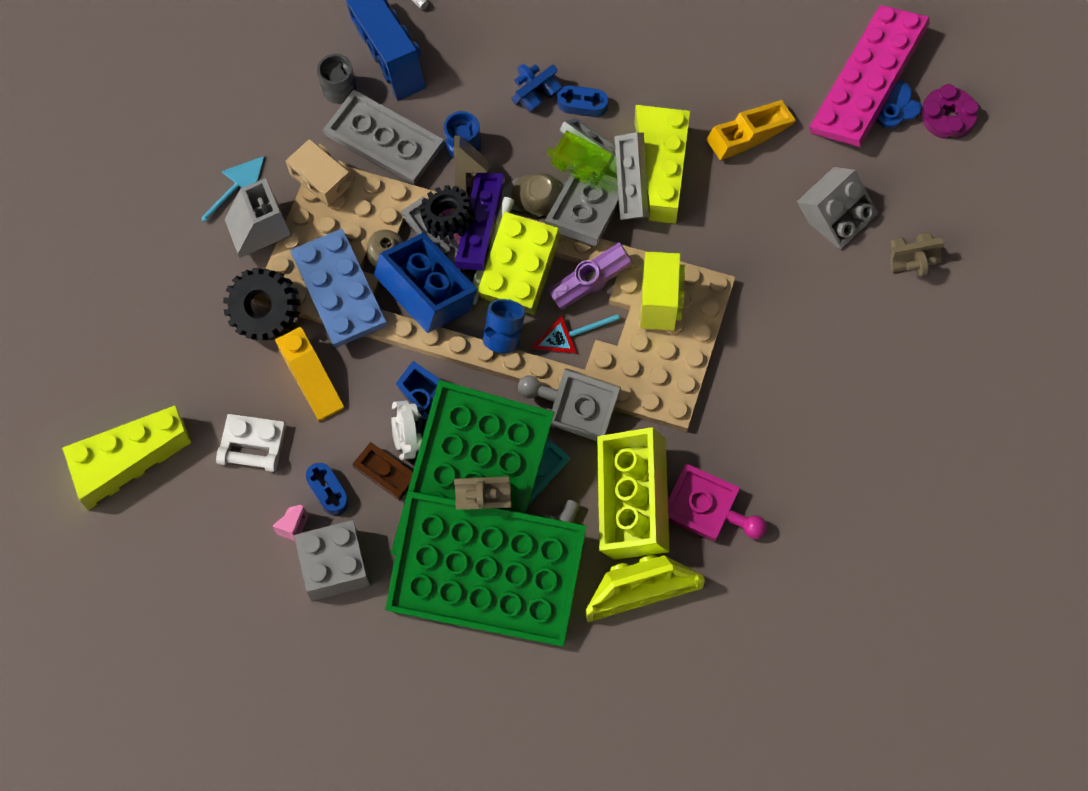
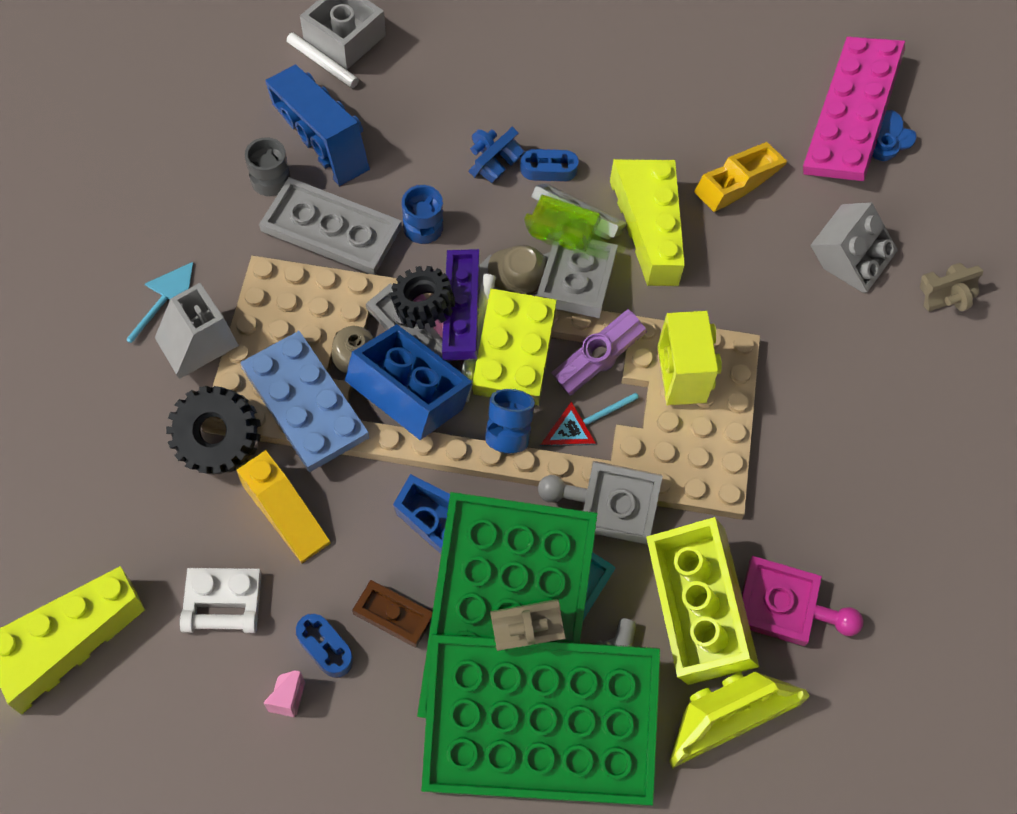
camera: 15 degrees left, 5 degrees down
(319, 172) = (262, 270): tan brick -> none
(331, 560) = (344, 736): light grey brick -> none
(404, 429) = (412, 559): white plate -> none
(467, 161) = (433, 240): dark tan slope -> none
(631, 176) = (625, 236): light grey plate -> none
(949, 98) = (957, 128): magenta plate -> none

